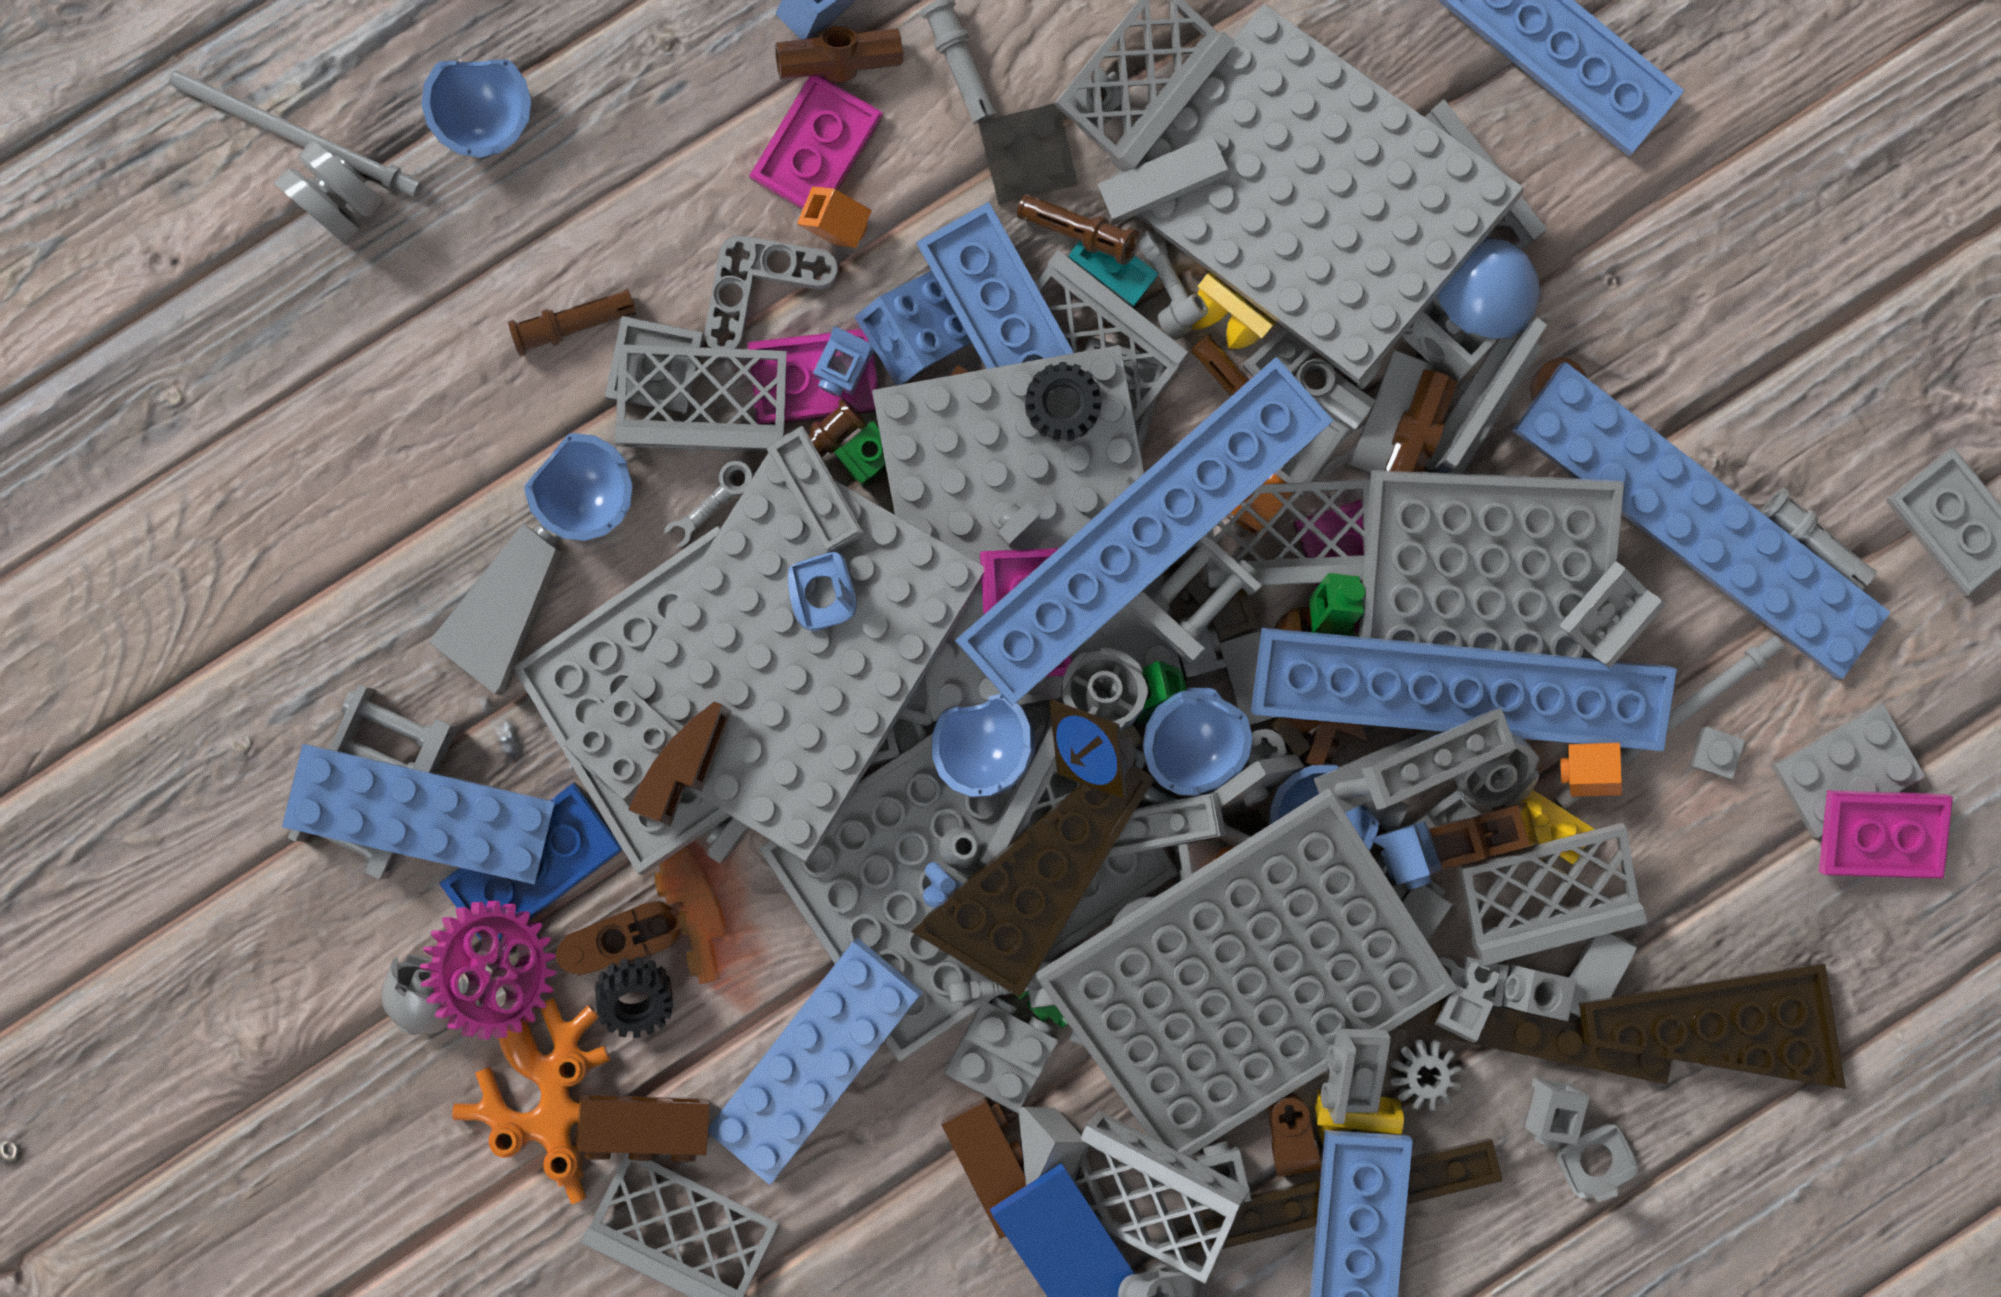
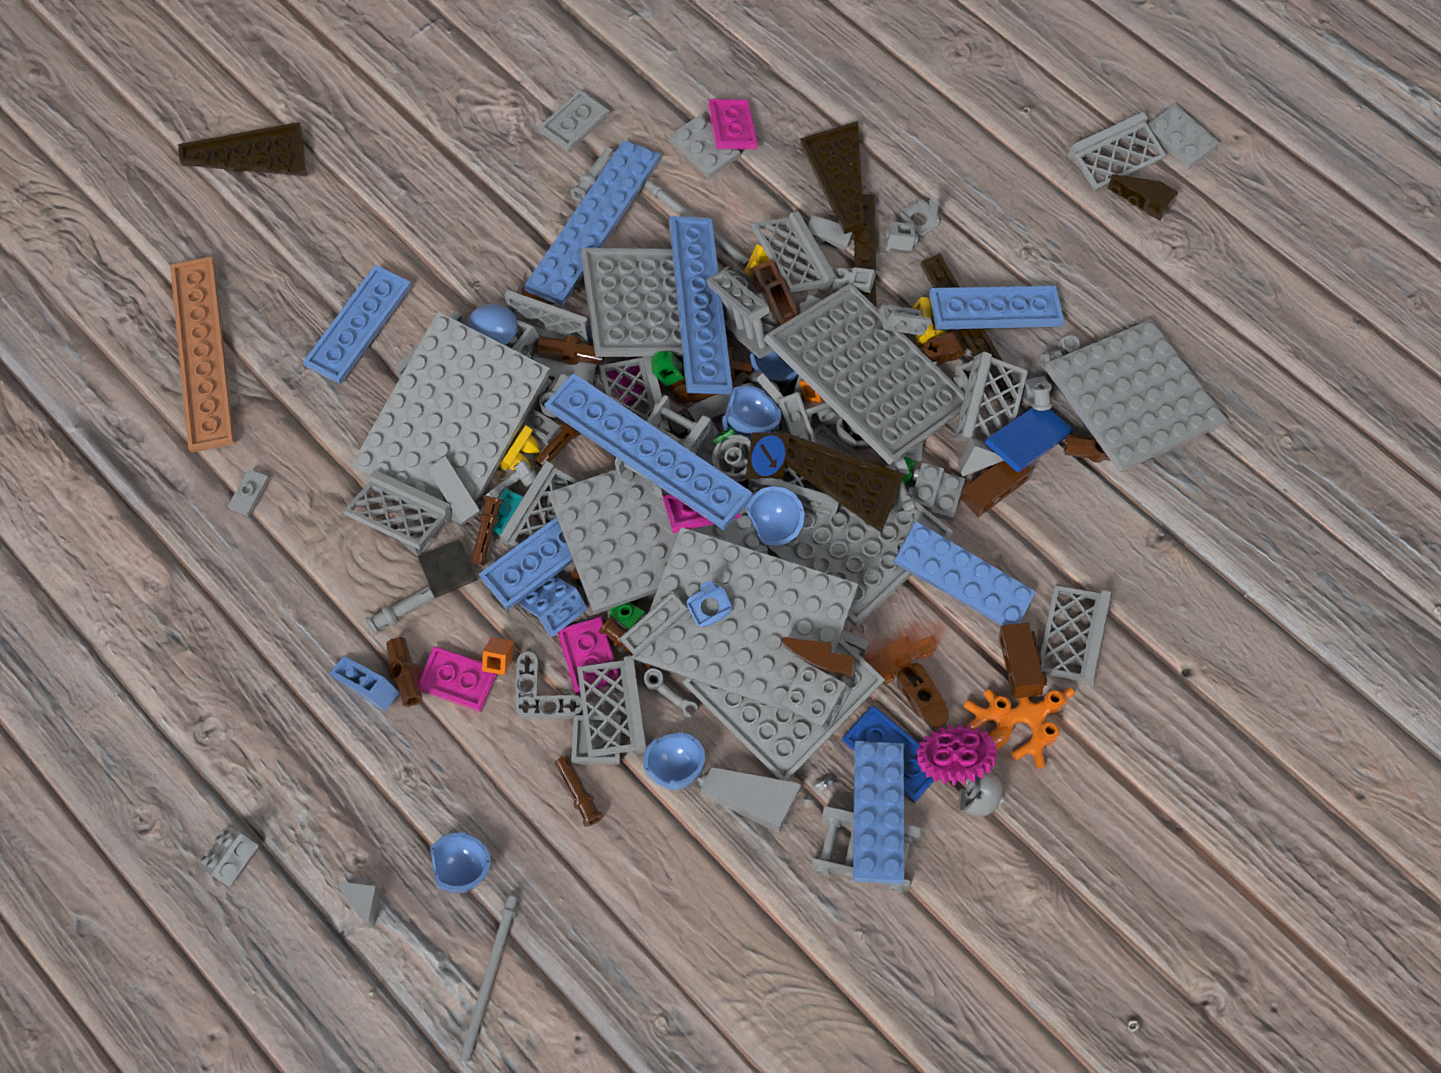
camera: 95 degrees left, 20 degrees down
(329, 191) = (523, 938): light grey wheel -> none
(630, 979) = (953, 677): black tyre -> none
(842, 363) = (579, 634): medium blue window -> none
(941, 885) = (855, 527): medium blue plate -> none
(951, 856) = (832, 520): light grey cone -> none
(1016, 522) = (653, 519): light grey plate -> none
(1071, 377) = (579, 497): black tyre -> none
(1409, 855) = (787, 311): medium blue window -> none
(1421, 1090) = (896, 293): light grey gear -> none
(1552, 996) = (843, 252): light grey brick -> none
(1593, 769) = (727, 245): orange brick -> none
(1612, 615) = (649, 243): light grey bracket -> none
(1717, 753) = (707, 201): light grey plate -> none

